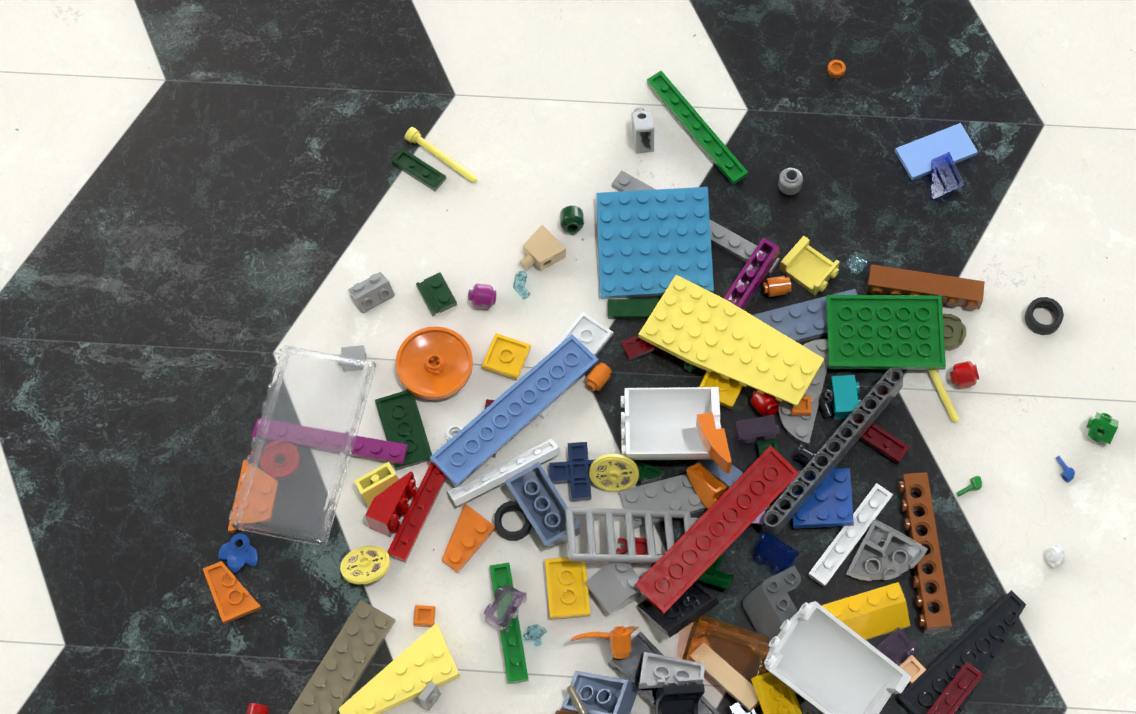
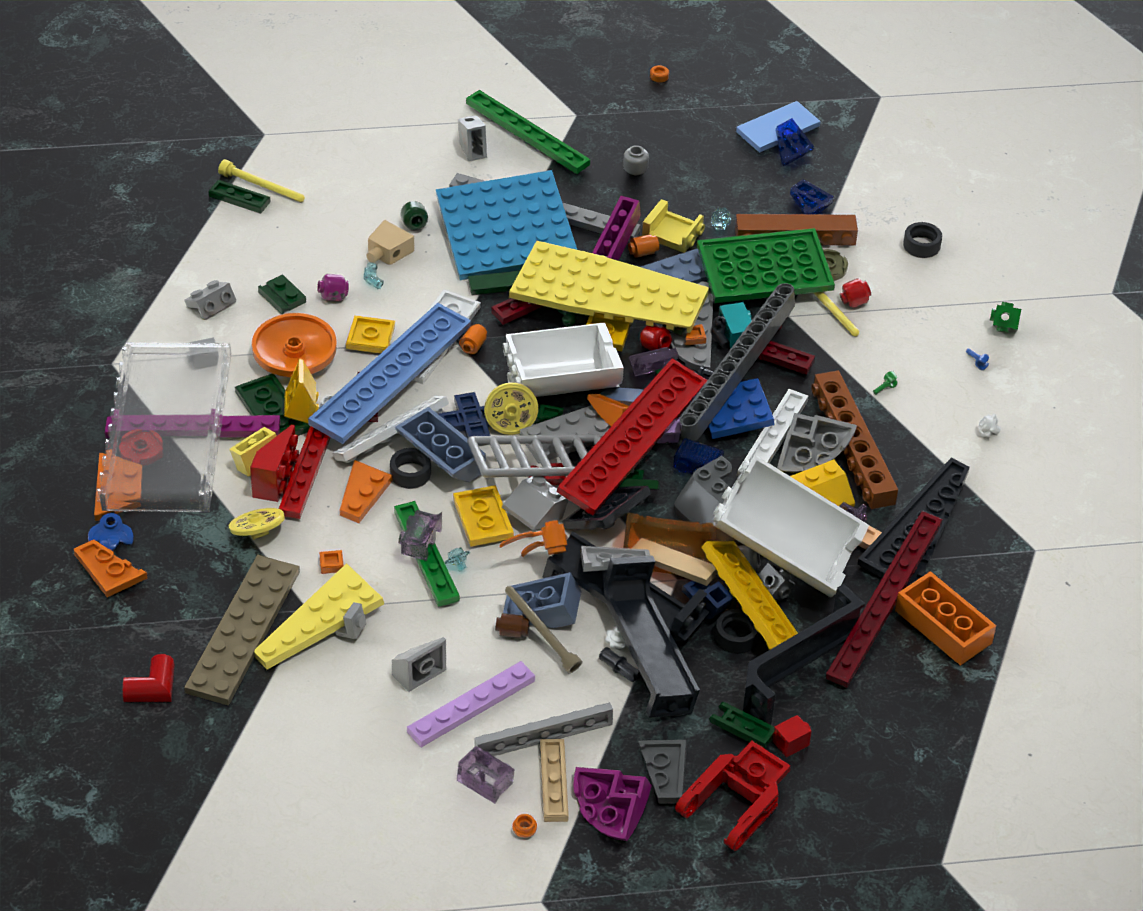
camera: 15 degrees left, 20 degrees down
(428, 427) = (301, 394): none -> yellow slope
(714, 441) = (613, 354): orange slope -> none
(947, 248) = (810, 198): none -> clear blue wing

